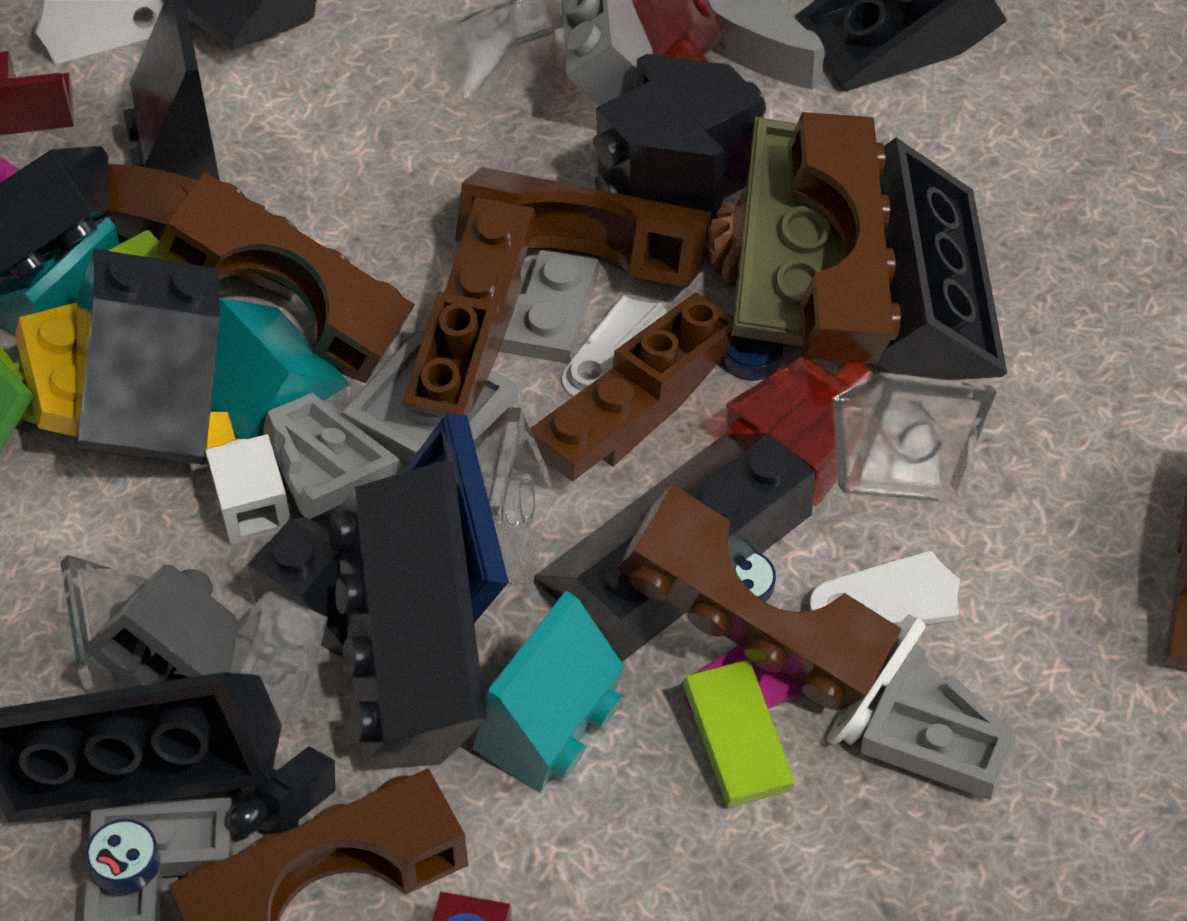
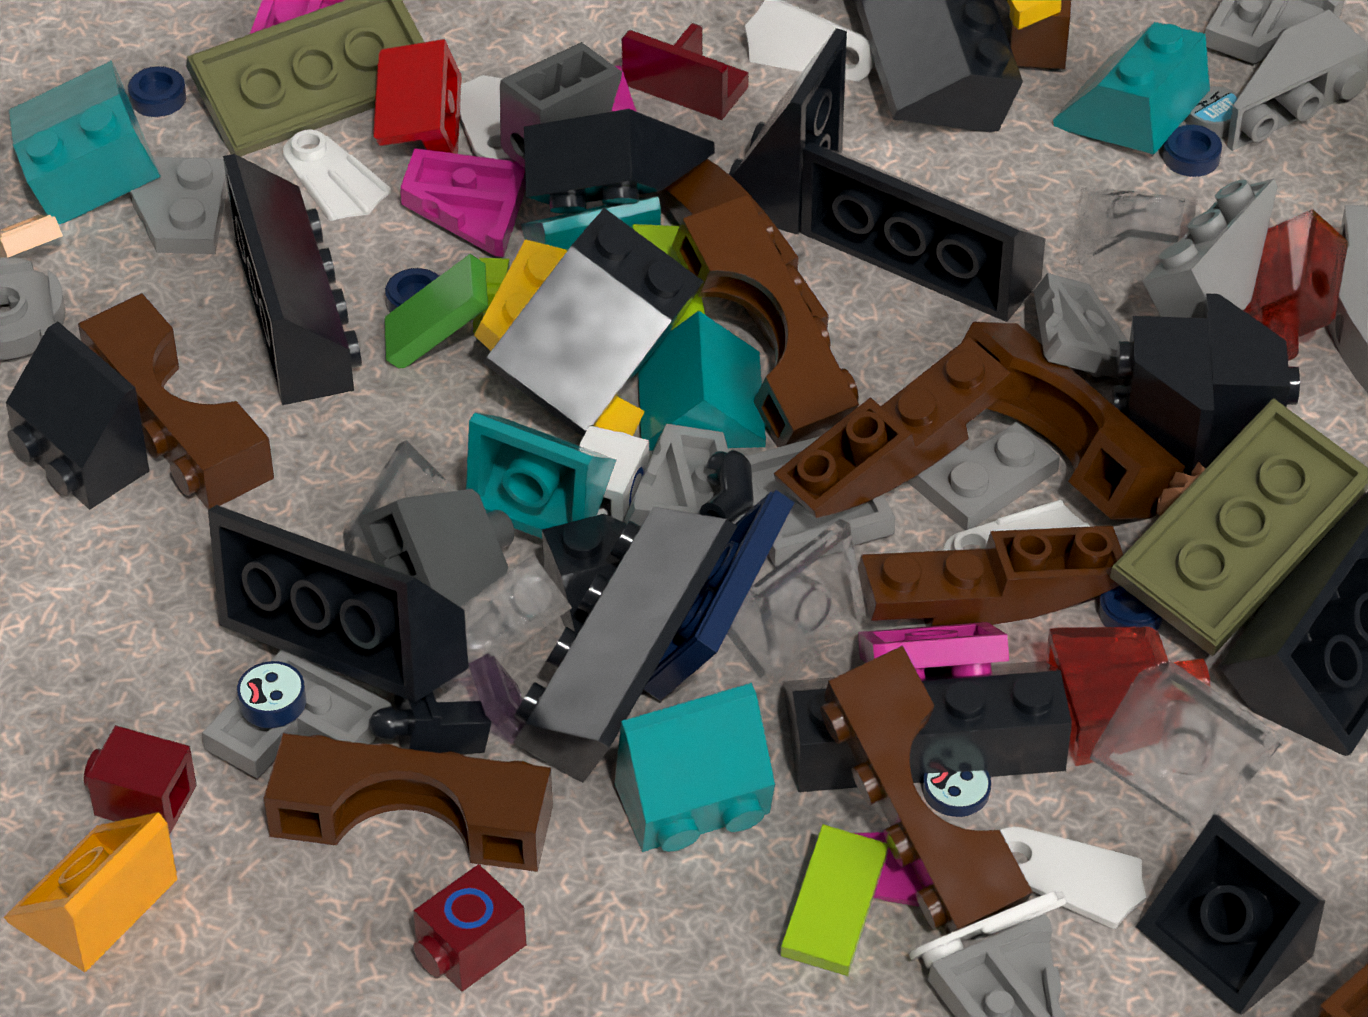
camera: 35 degrees right, 5 degrees down
(206, 521) = (533, 474): none -> teal slope
(321, 733) = (498, 695): none -> clear purple tile
(333, 135) = (918, 233): none -> black slope
(377, 438) = (735, 477): none -> black arm
(530, 145) = (1076, 326): none -> light grey wing
(644, 472) = (959, 647): none -> dark pink plate
(838, 173) = (1219, 597): reddish brown arch -> none
(1048, 553) = (1234, 916): none -> black slope

